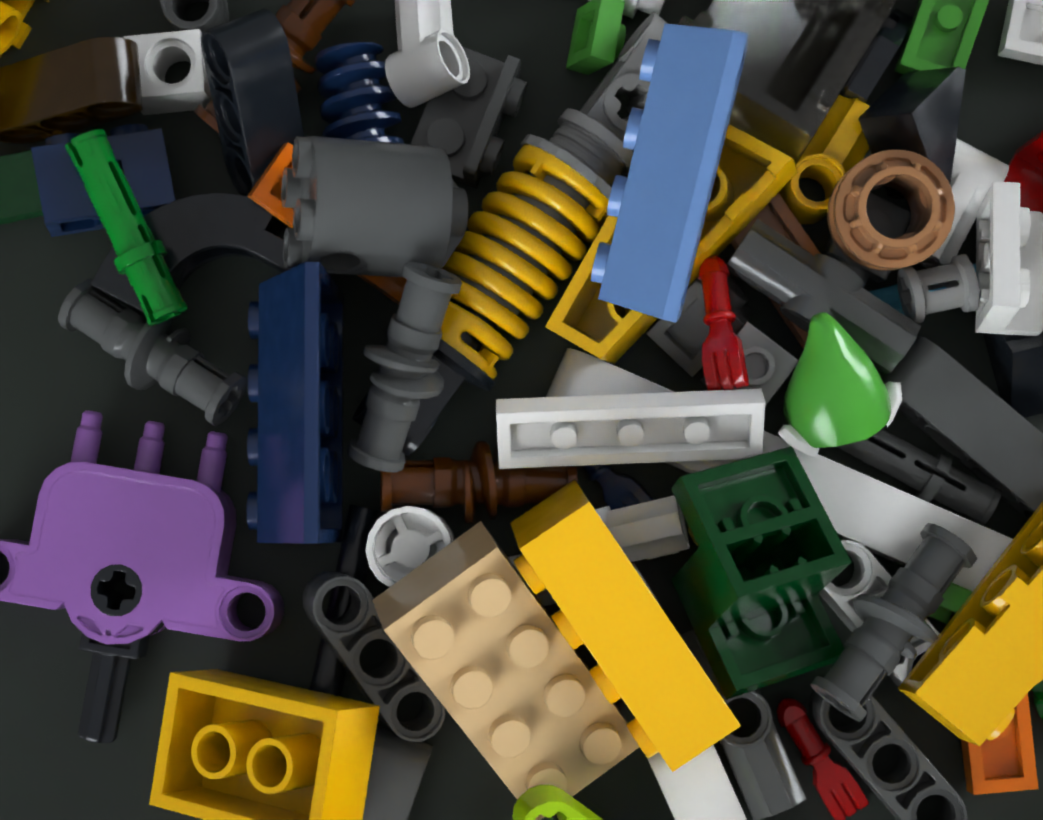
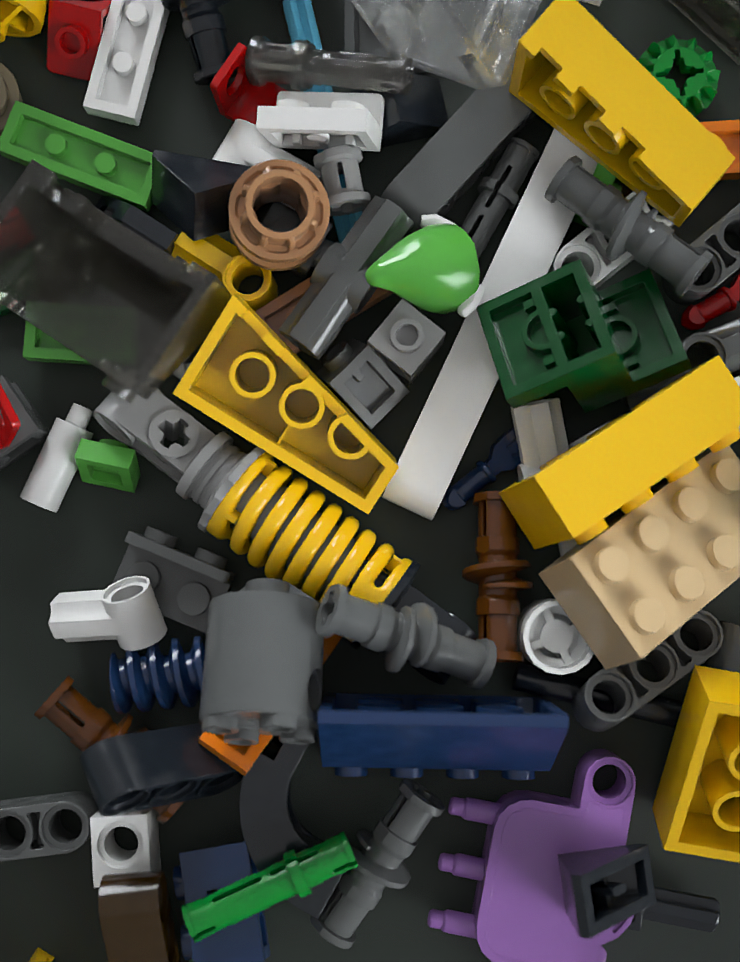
camera: 90 degrees left, 0 degrees up
(129, 605) = (606, 886): none -> black slope
(630, 428) = (459, 443): white plate -> none
(671, 169) = (247, 395): medium blue slope -> none
(722, 349) = (393, 362): red piece -> none

